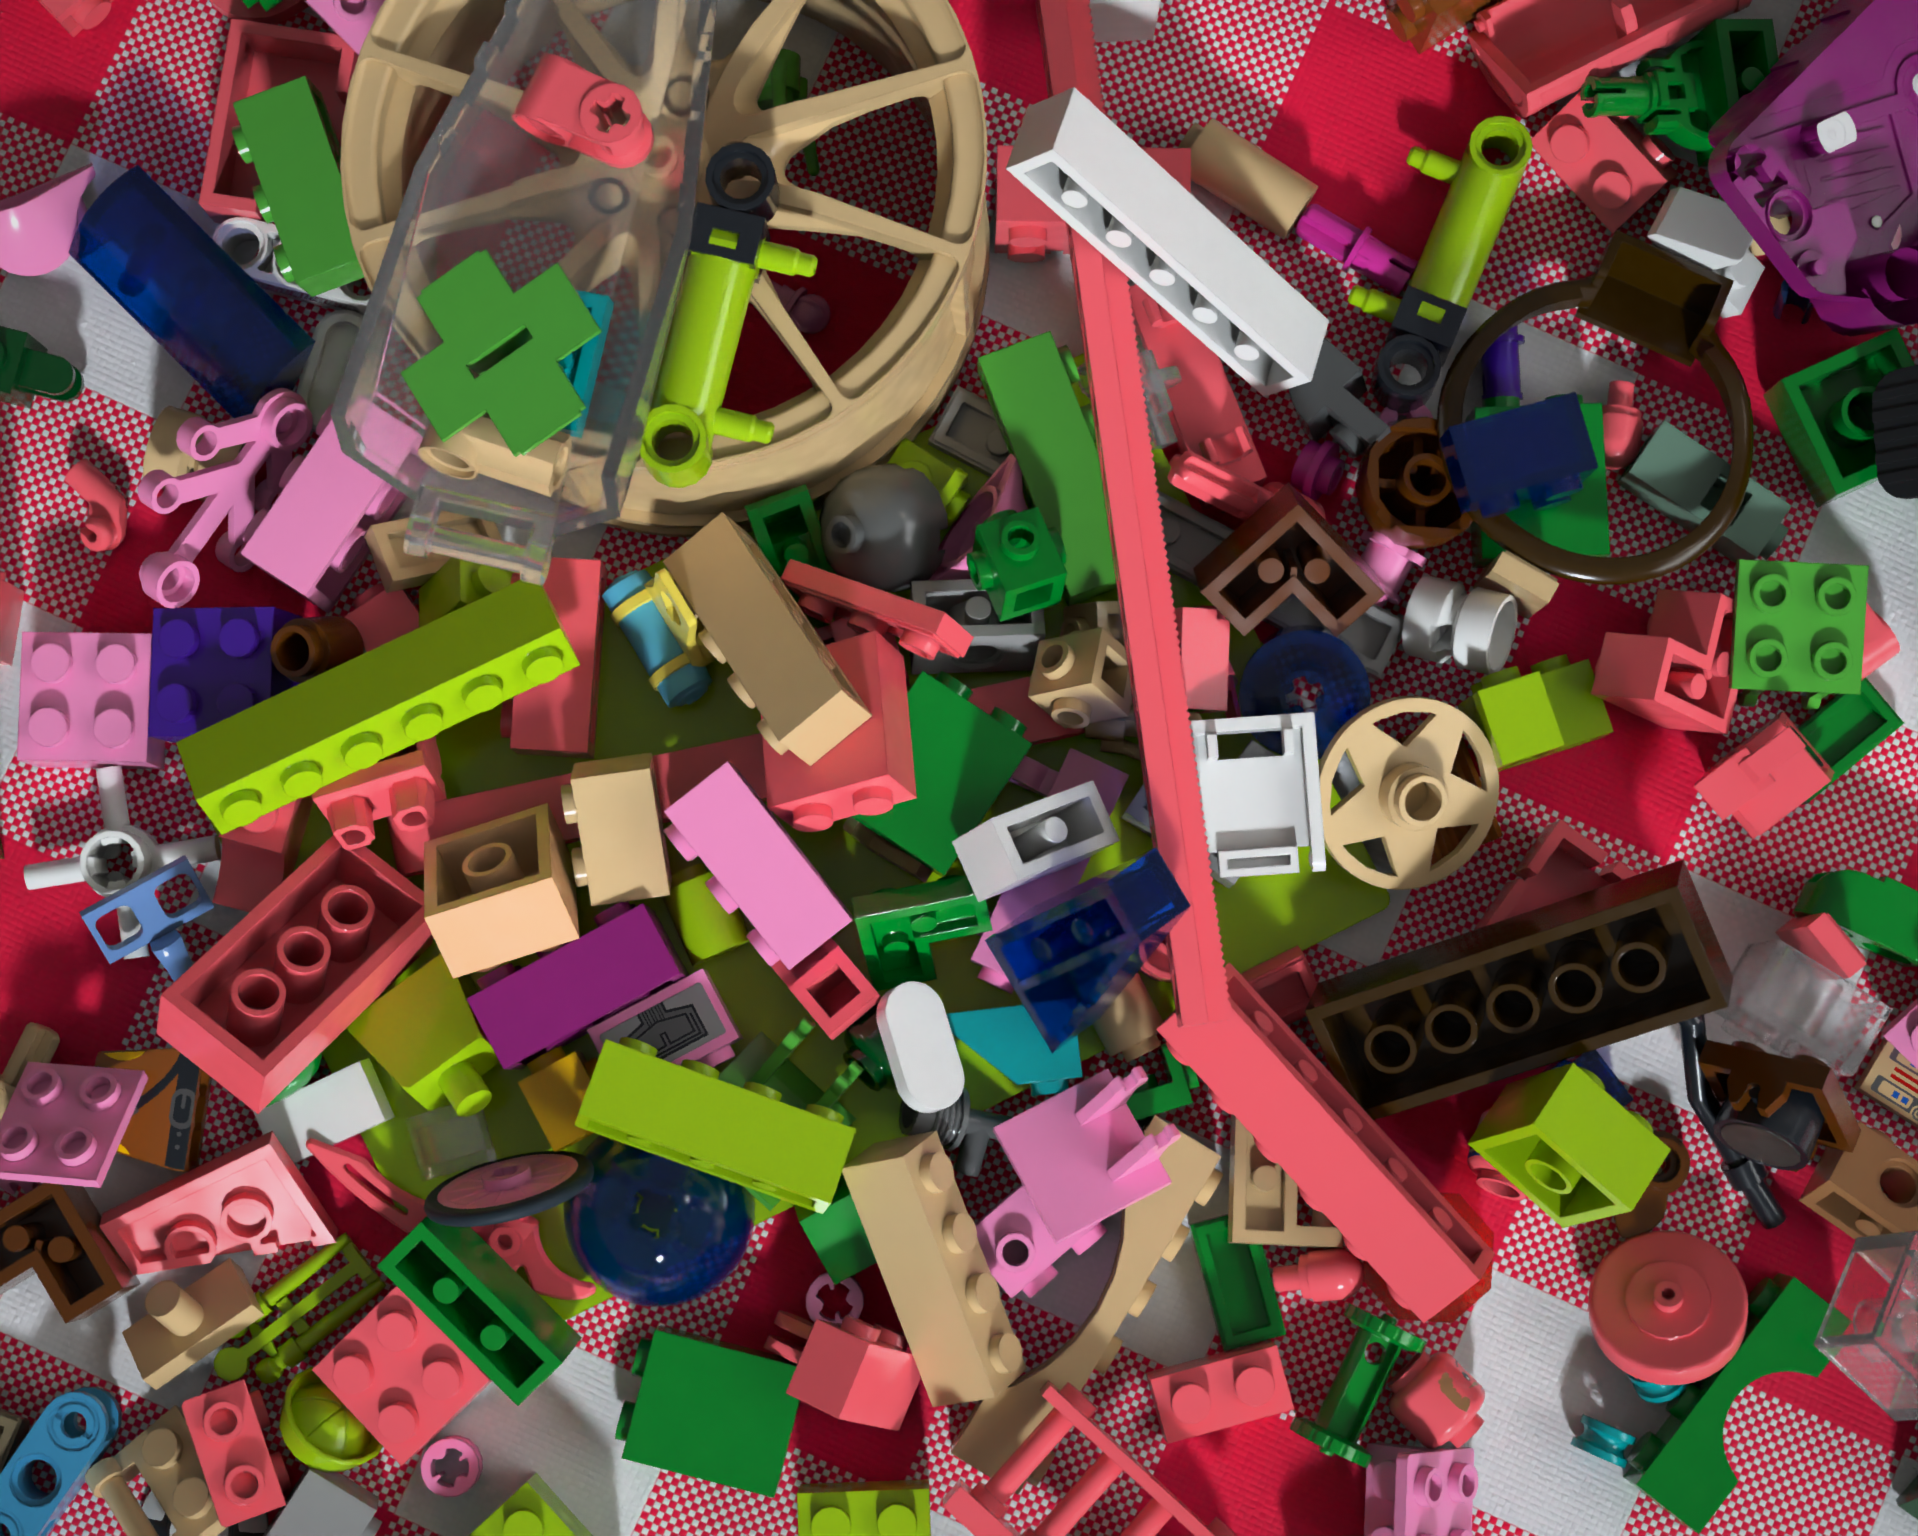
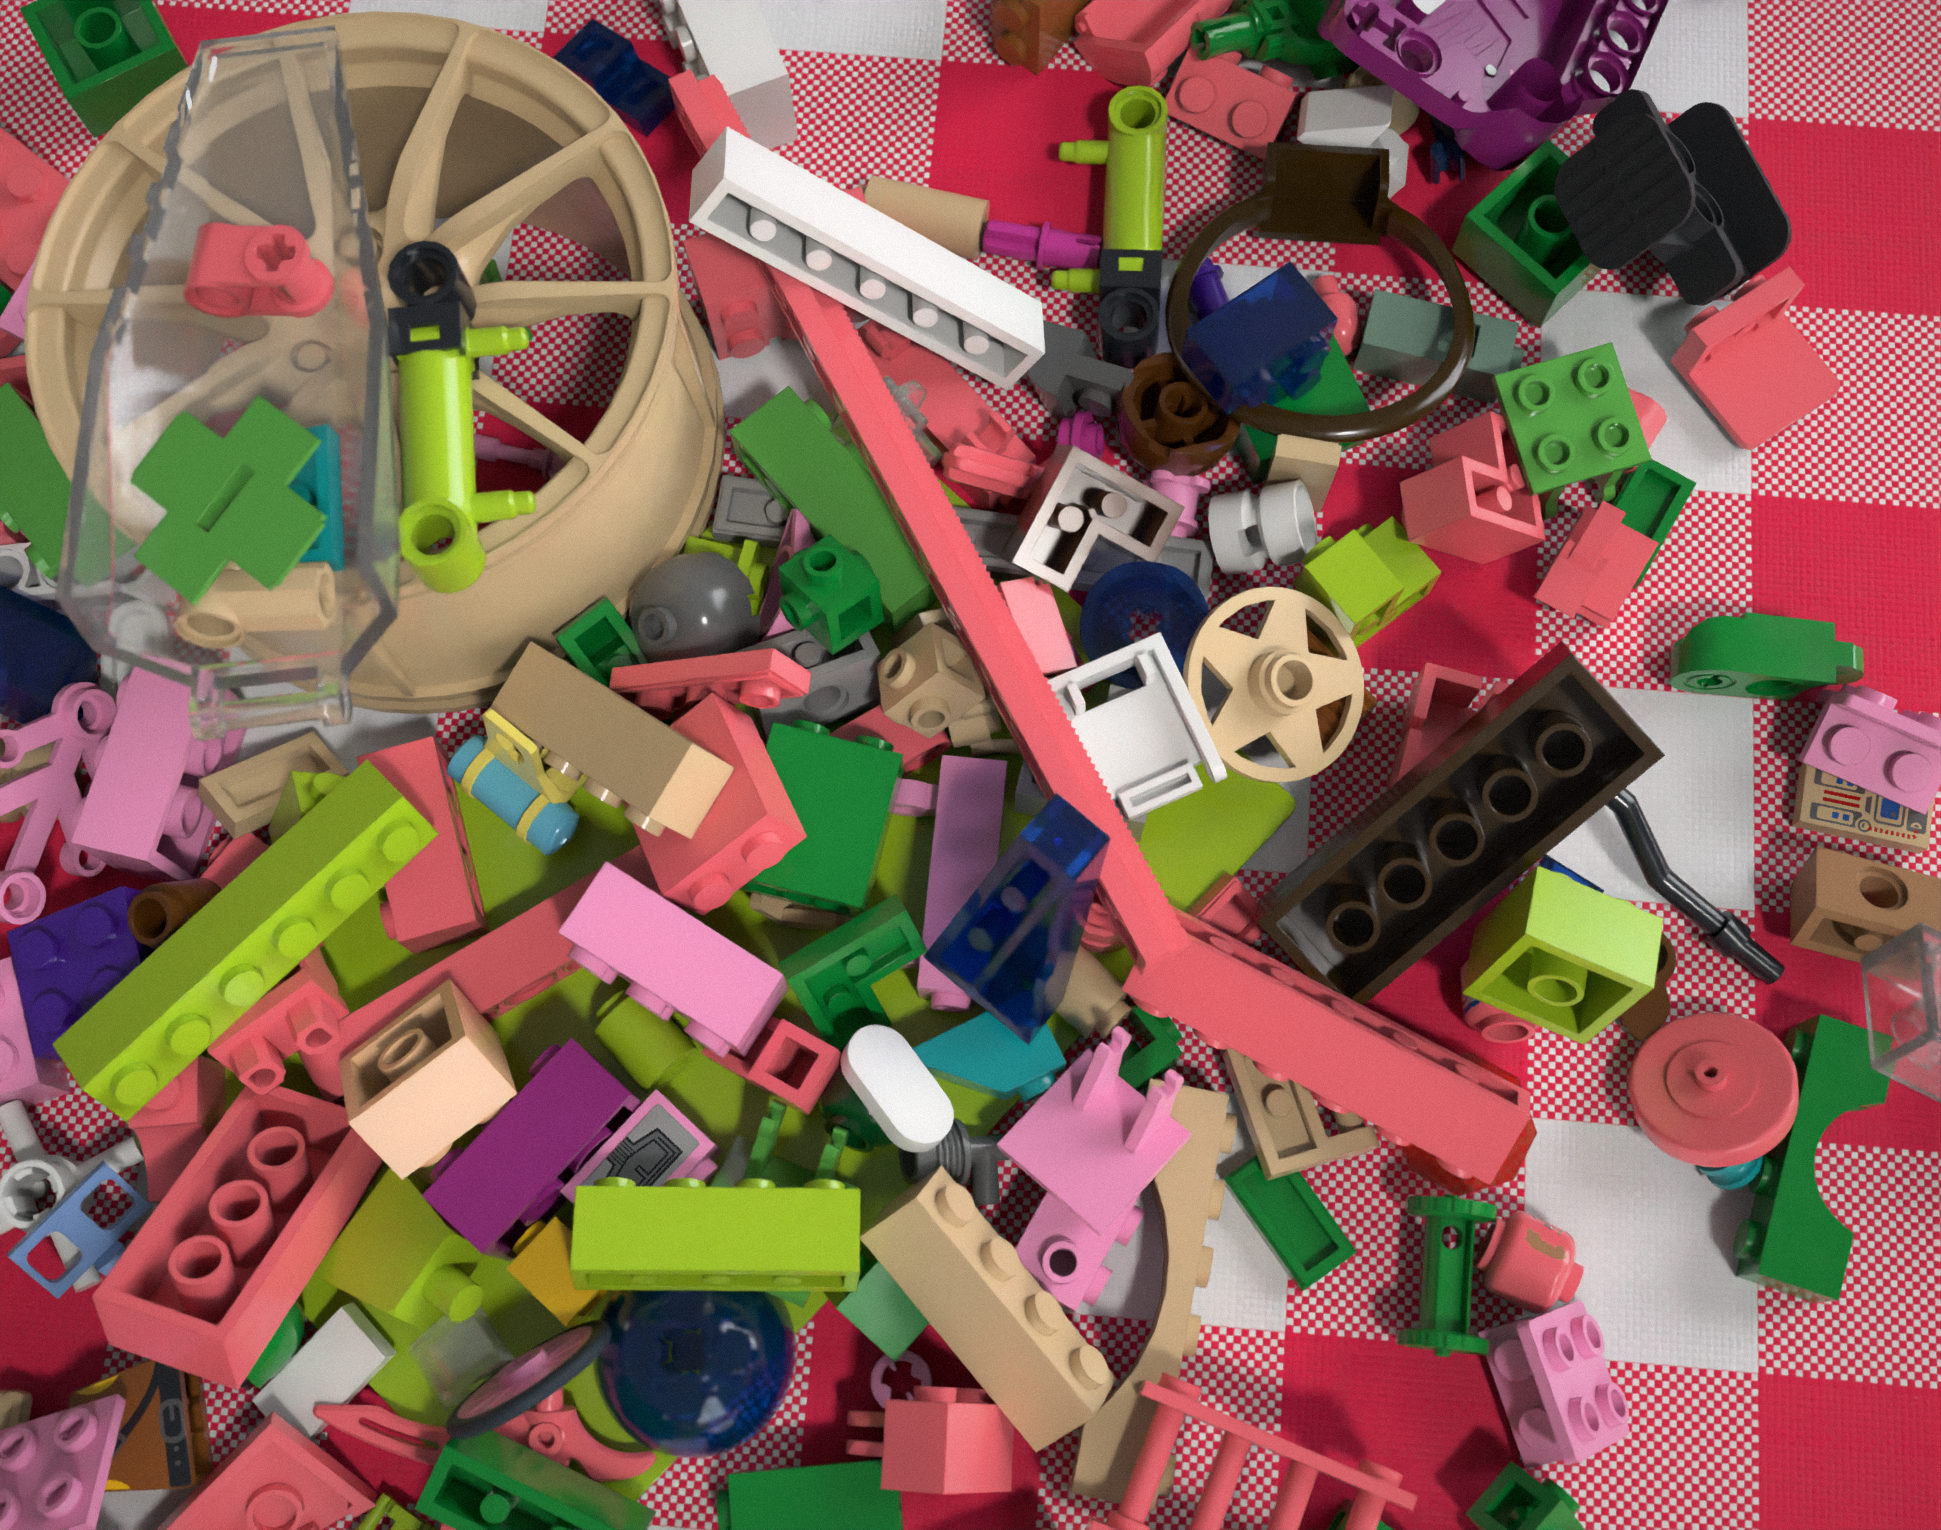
camera: 15 degrees left, 10 degrees down
(619, 829) = (526, 978): tan brick -> none
(1035, 840) = (937, 841): white brick -> none
(1219, 1391) = (1315, 1331): coral brick -> none
(1322, 1275) = (1369, 1180): coral cylinder -> none
(1603, 1441) = (1705, 1244): teal bush -> none
(1776, 1105) = (1737, 852): piece -> none
(1801, 1008) = (1722, 762): clear brick -> none
(1824, 942) = (1713, 698): coral tile -> none

